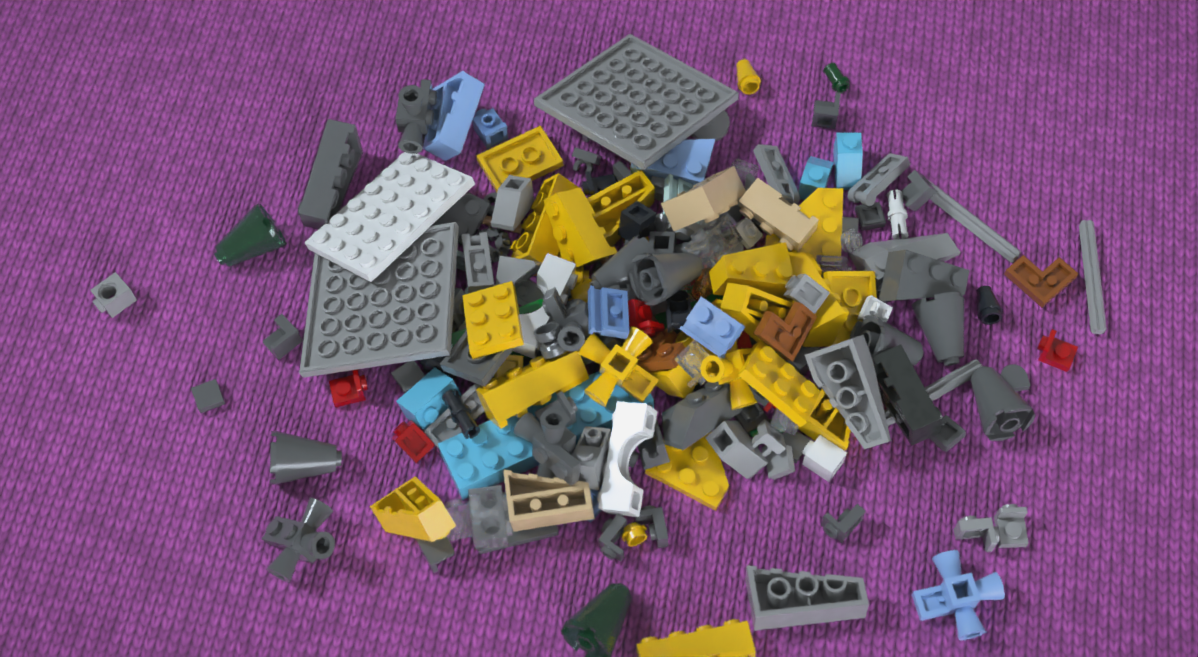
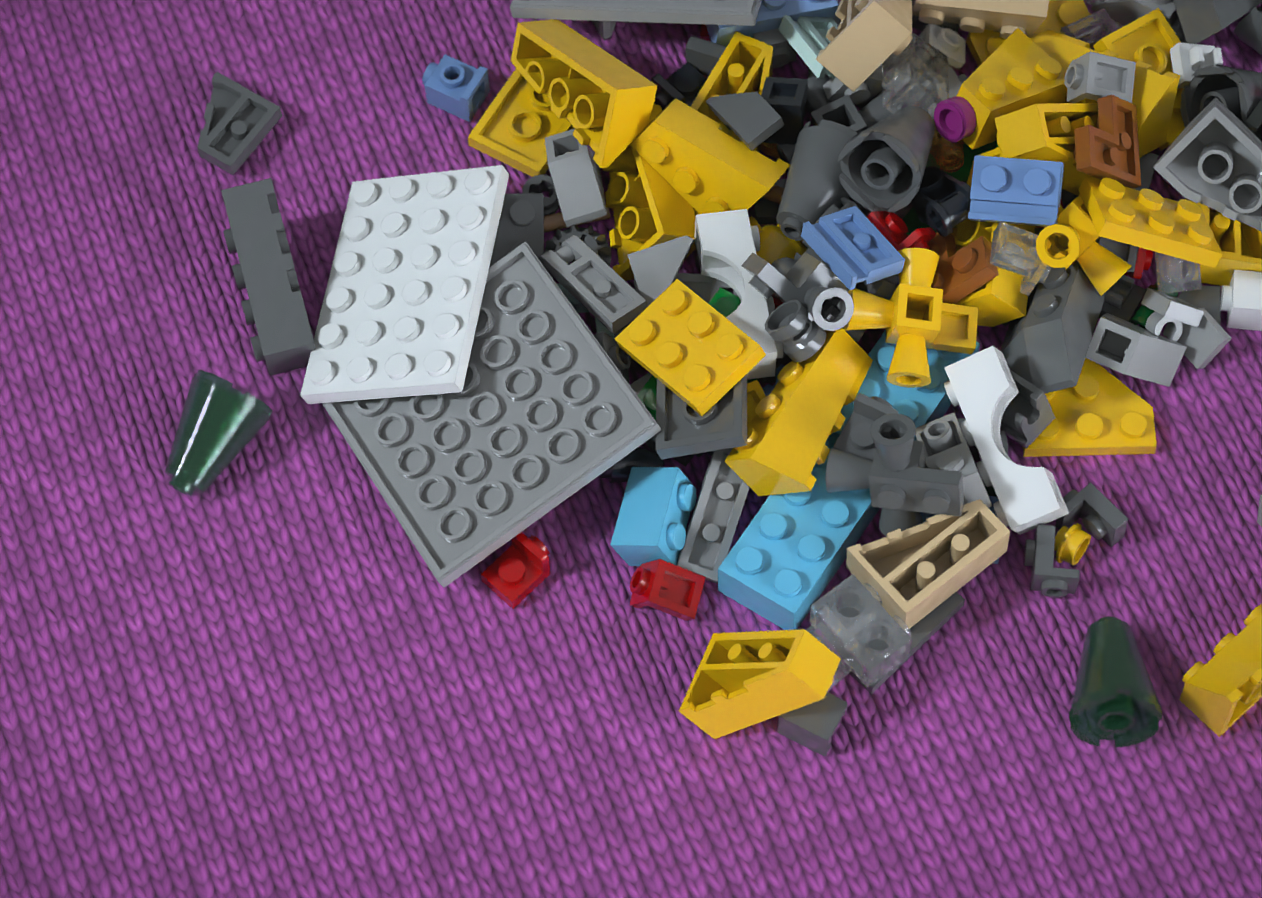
camera: 30 degrees left, 0 degrees up
(112, 286) = (52, 612): light grey brick -> none
(208, 396) = (310, 695): dark grey tile -> none
(283, 339) = (364, 550): dark grey panel -> none
(299, 539) = (610, 813): dark grey brick -> none
(301, 458) = (519, 704): dark grey cone -> none
(371, 91) = (234, 124): none -> dark grey wing
(407, 375) = (595, 506): light grey tile -> none
(415, 115) = (346, 124): dark grey brick -> none
(452, 115) = (392, 94): light blue wedge -> none
(461, 414) = (727, 507): black pin -> none
(541, 157) = (585, 85): none -> yellow wedge
(587, 158) = (636, 57): dark grey tile -> none
(609, 216) = (747, 116): none -> dark grey slope
(711, 272) = (955, 118): none -> magenta tile

